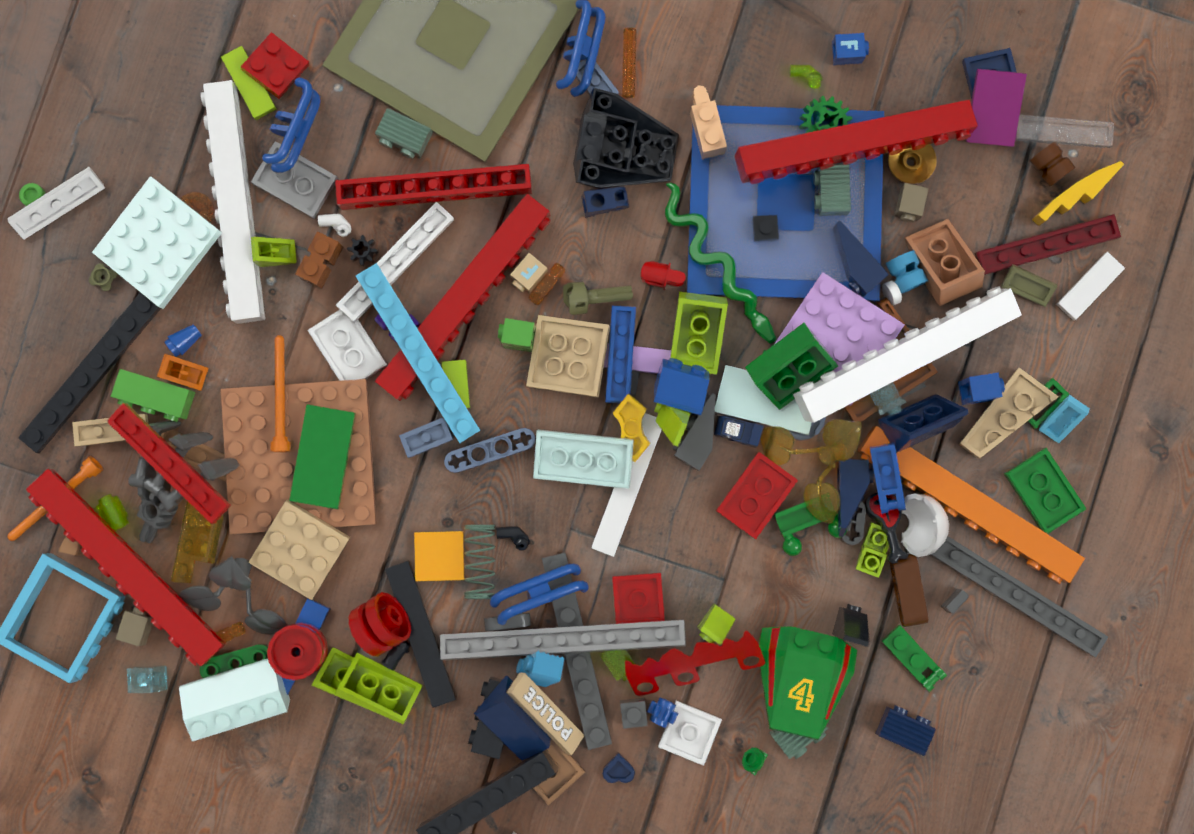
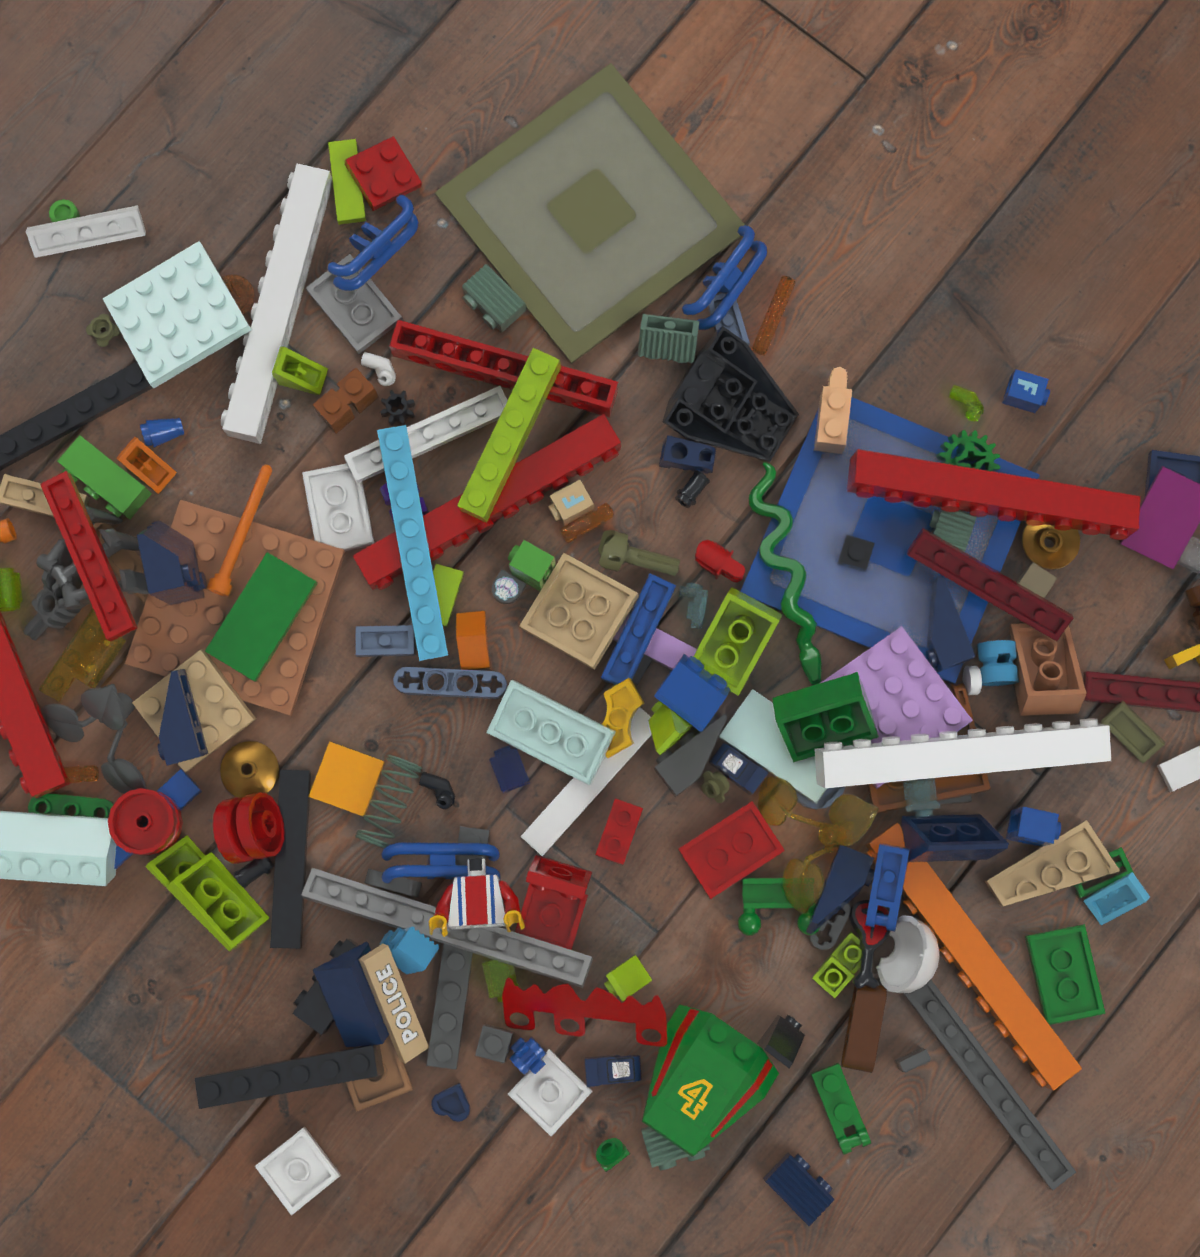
camera: 20 degrees right, 5 degrees down
(235, 444) = (170, 565): none -> dark blue wedge
(295, 568) = (180, 727): none -> dark blue slope
(373, 578) = (264, 772): none -> pearl gold dish
(461, 239) = (509, 435): none -> lime brick
(494, 410) = (472, 640): none -> orange slope
(504, 359) = (507, 588): none -> tile
(554, 113) = (668, 338): none -> sand green brick
(562, 499) = (509, 769): none -> clear blue brick
(579, 613) = (476, 902): none -> torso
(618, 226) = (692, 489): none -> black pin
(634, 568) = (558, 876): none -> red plate
(659, 319) = (696, 609): none -> clear light blue bracket
(666, 515) = (619, 832): none -> red brick
(725, 451) = (715, 785): none -> olive plate
(730, 697) = (612, 1069): none -> dark blue leg
(878, 213) = (989, 584): none -> dark red tile

